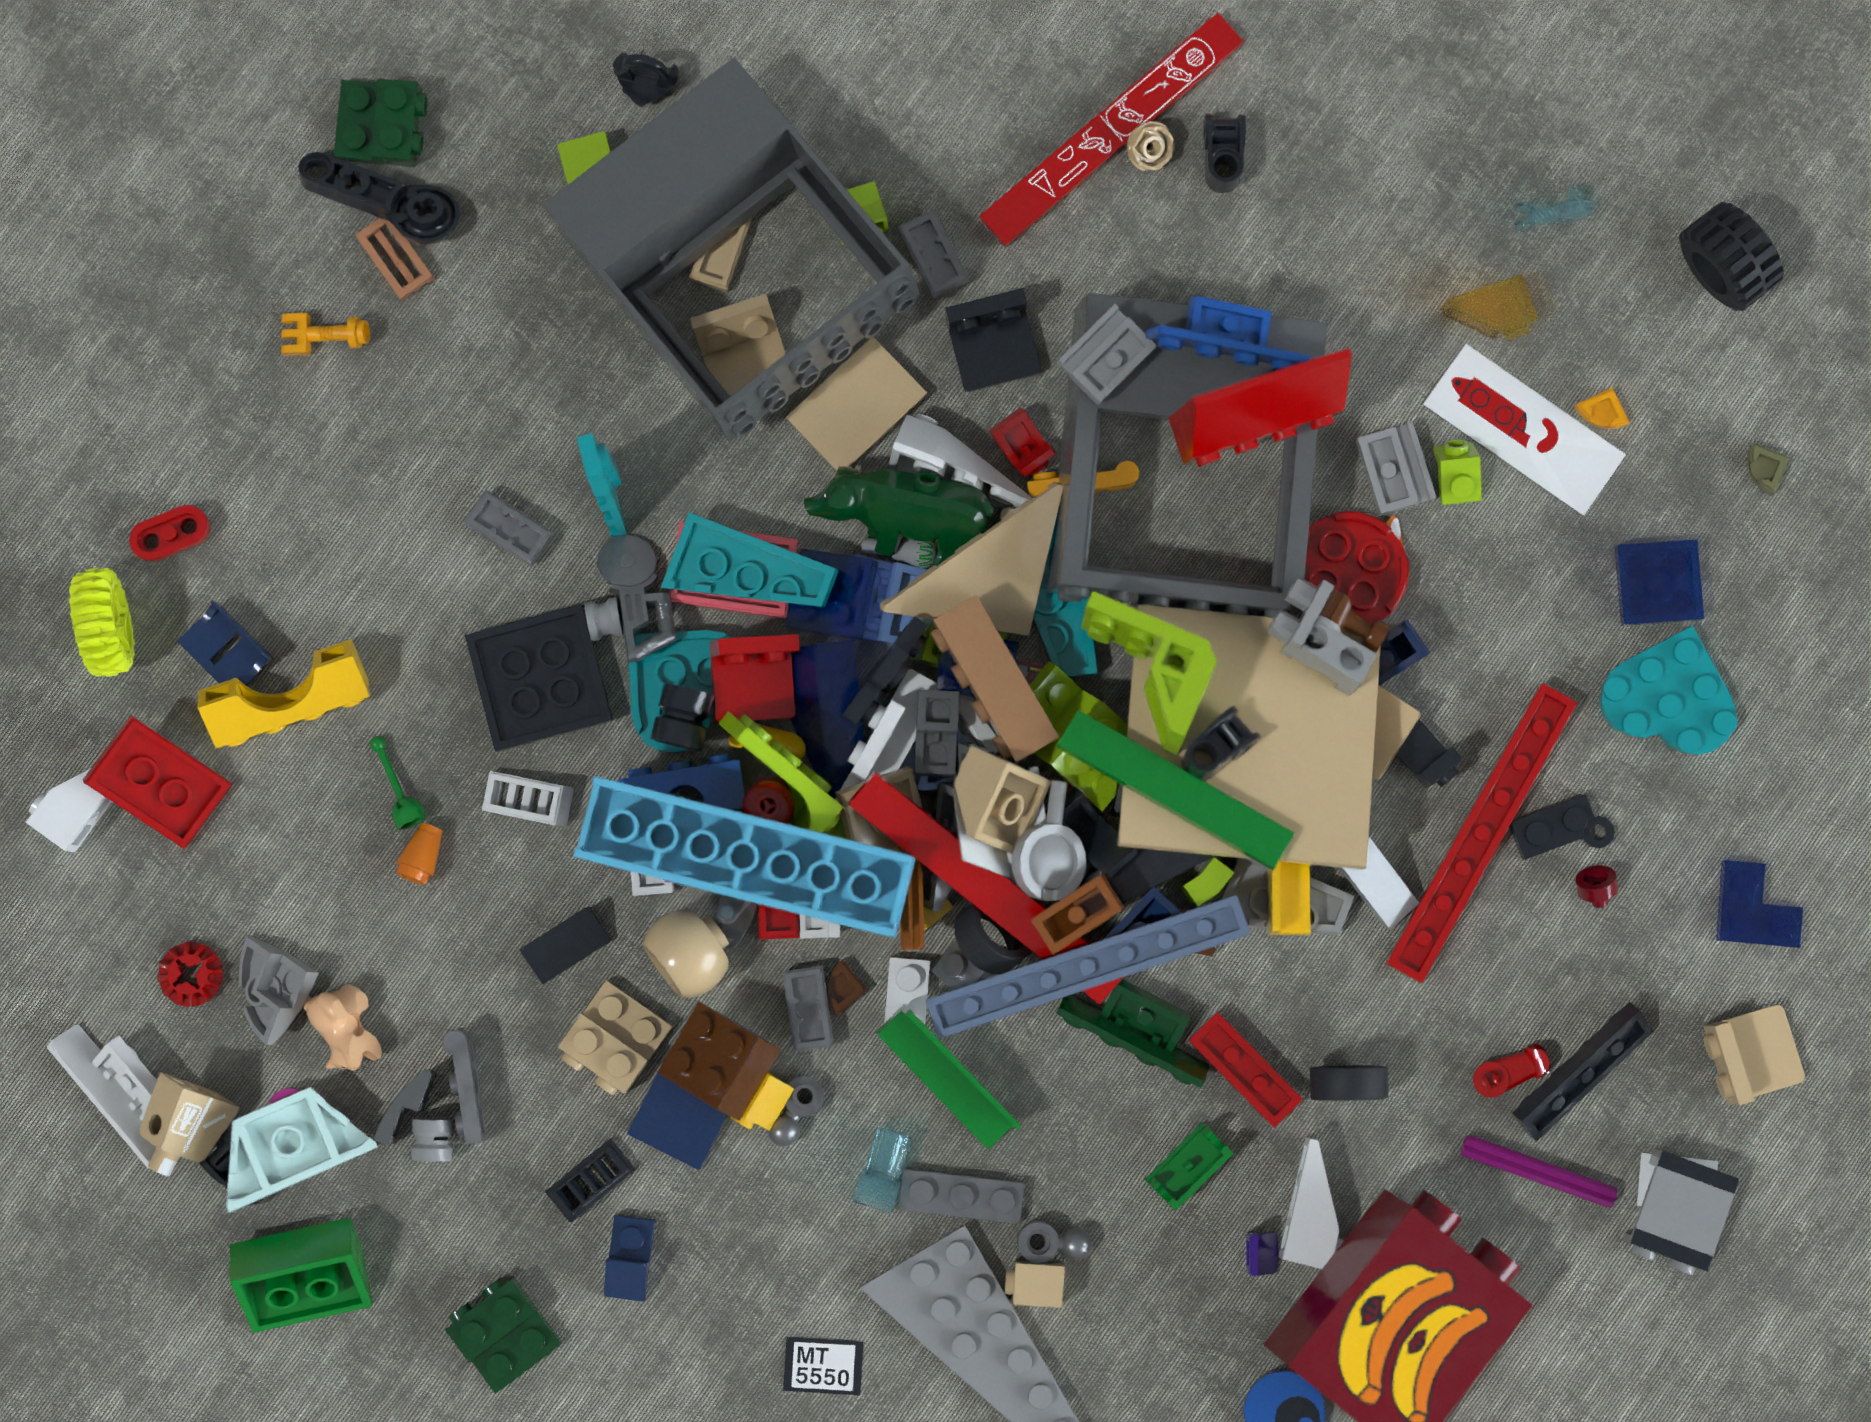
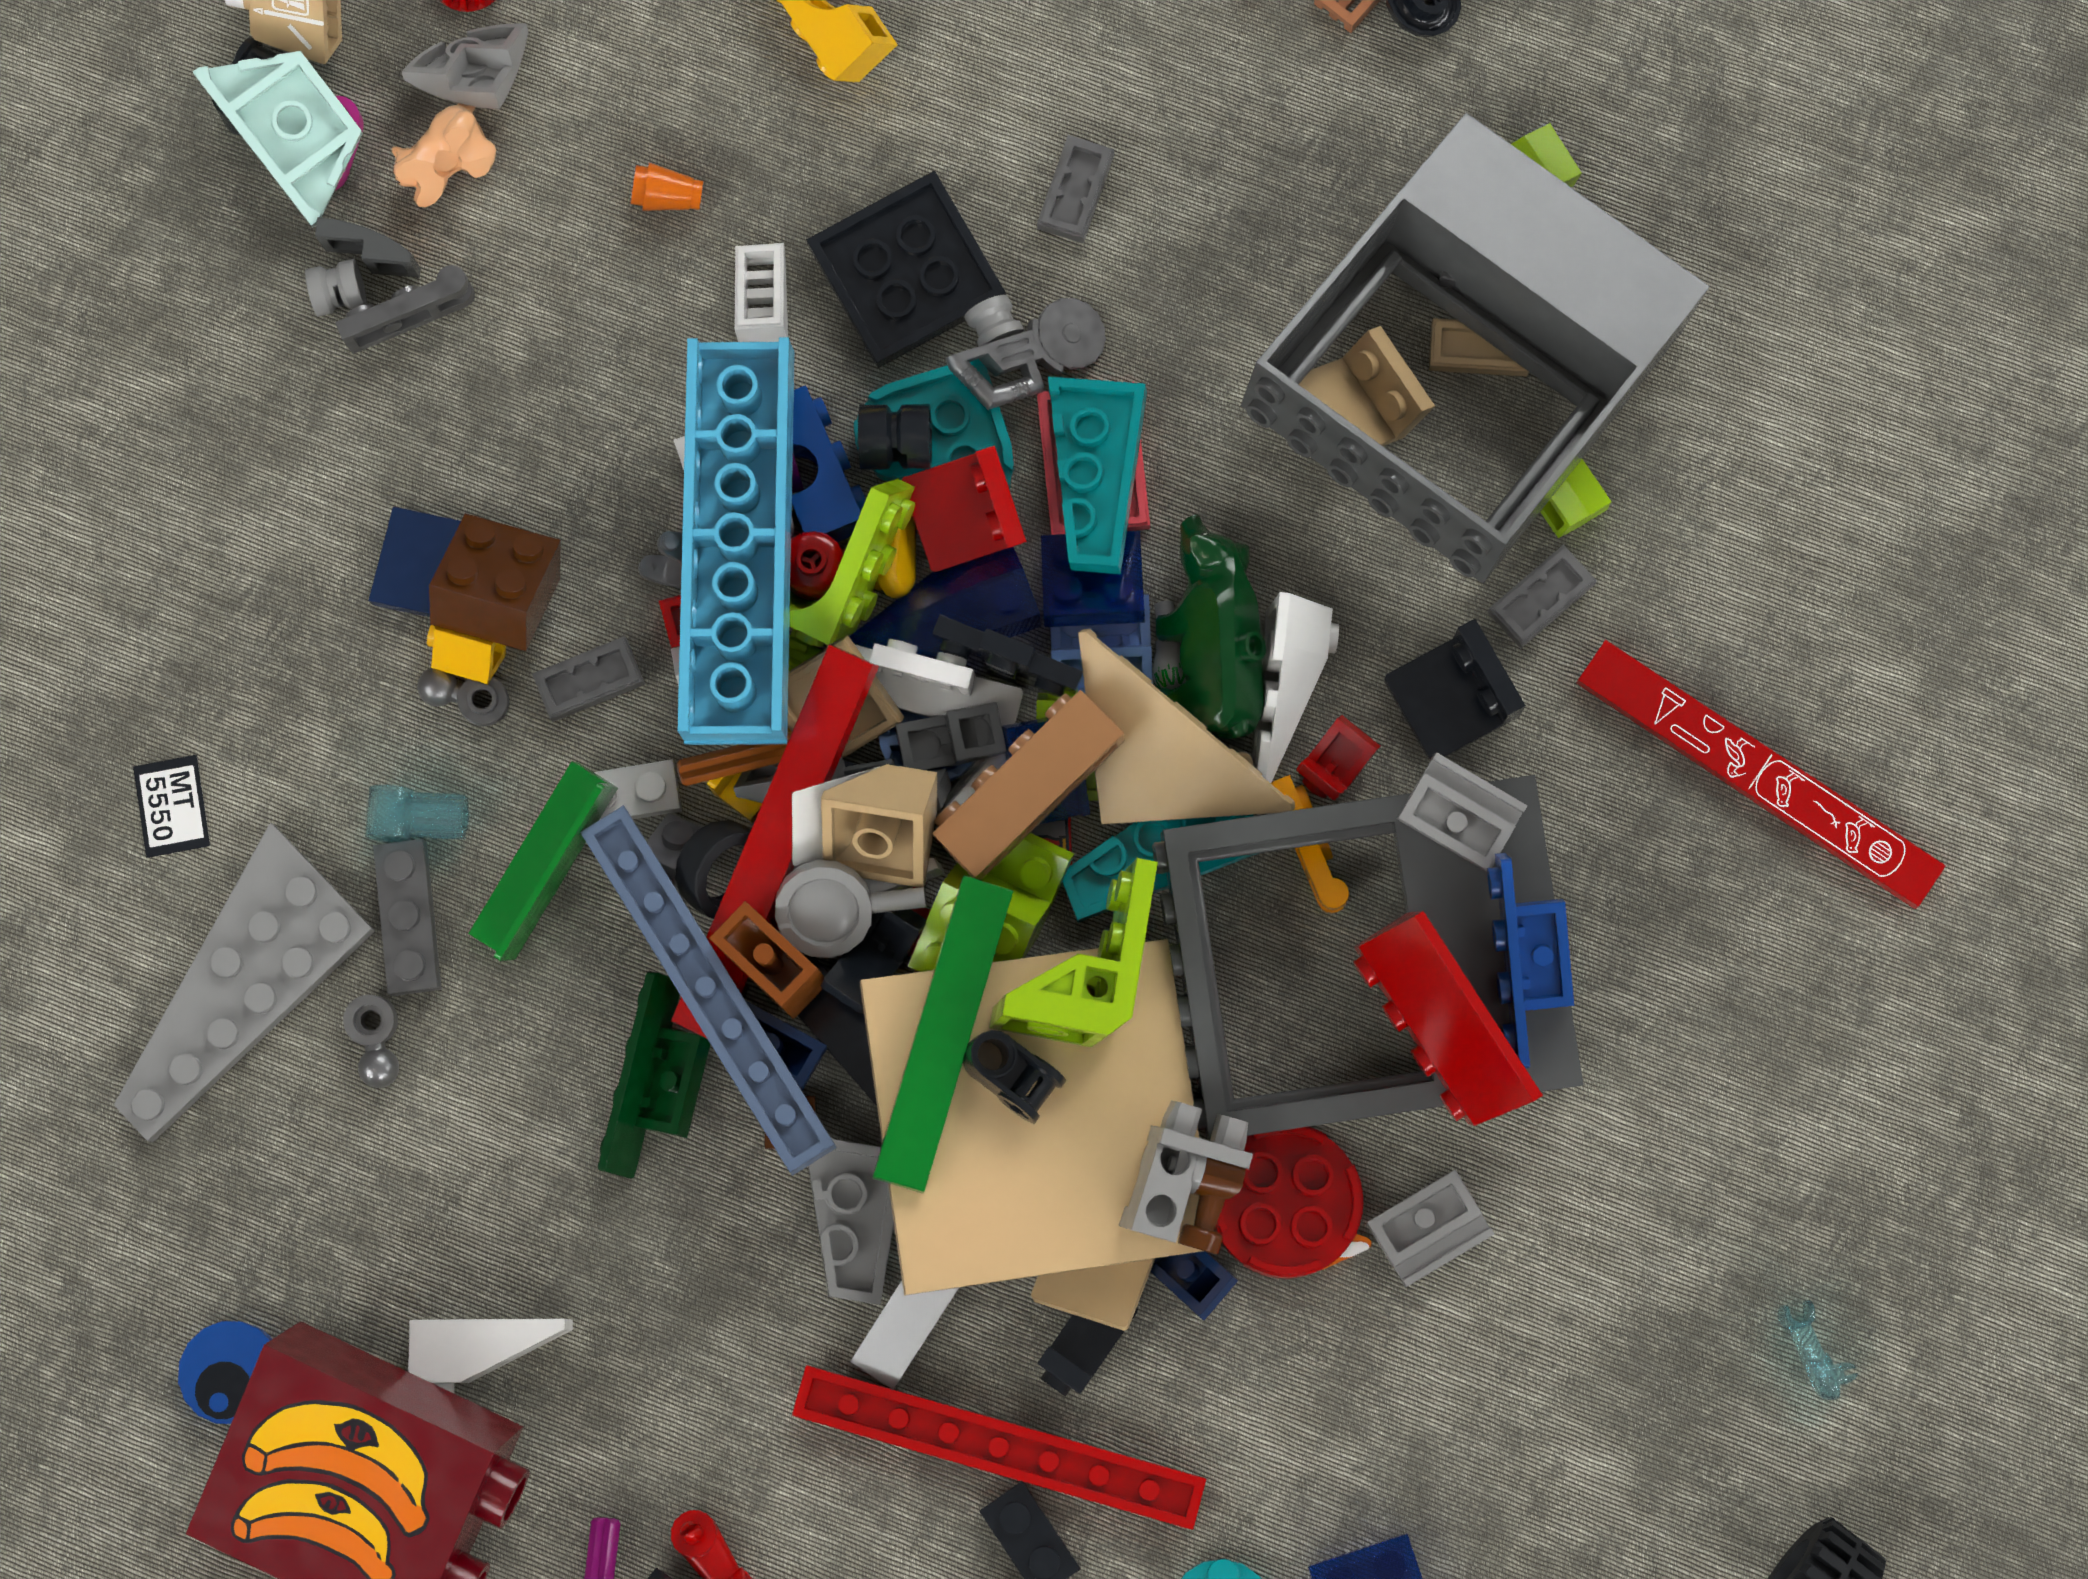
camera: 85 degrees right, 5 degrees down
(300, 1275) = (148, 181): green slope -> none
(407, 810) = (714, 161): green hinge -> none
(502, 1333) = (131, 425): dark green plate -> none
(565, 944) = (599, 380): black slope -> none
(565, 1205) = (295, 454): black slope -> none
(603, 479) = (1155, 267): teal wing -> none
(614, 1039) = (500, 464): tan plate -> none
(629, 1258) = (251, 548): dark blue slope -> none
(644, 77) = (1658, 202): black piece -> none
(687, 952) = (618, 516): tan wheel -> none
(843, 988) = (624, 715): reddish brown tile -> none
(856, 405) = (1331, 553): tan tile -> none
(1036, 1283) = (318, 1030): tan brick -> none
(1161, 146) = (1749, 838): tan plate -> none
(1188, 1166) = (501, 1181): green hinge -> none
(1207, 882) = (851, 1117): lime piece -> none
(1224, 145) = (1780, 915): black piece -> none
(1245, 1069) = (635, 1222): red plate -> none
(1261, 1253) = (416, 1298): dark purple slope -> none
(1289, 899) = (850, 1219): yellow panel -> none
(1349, 1083) = (644, 1350): black tyre -> none
(1458, 472) = (1447, 1308): lime bracket -> none
(1495, 309) = (1667, 1305): clear yellow slope -> none
(1524, 429) = (1525, 1383): white sticker -> none
(1603, 410) = (1577, 1477): light orange tile -> none

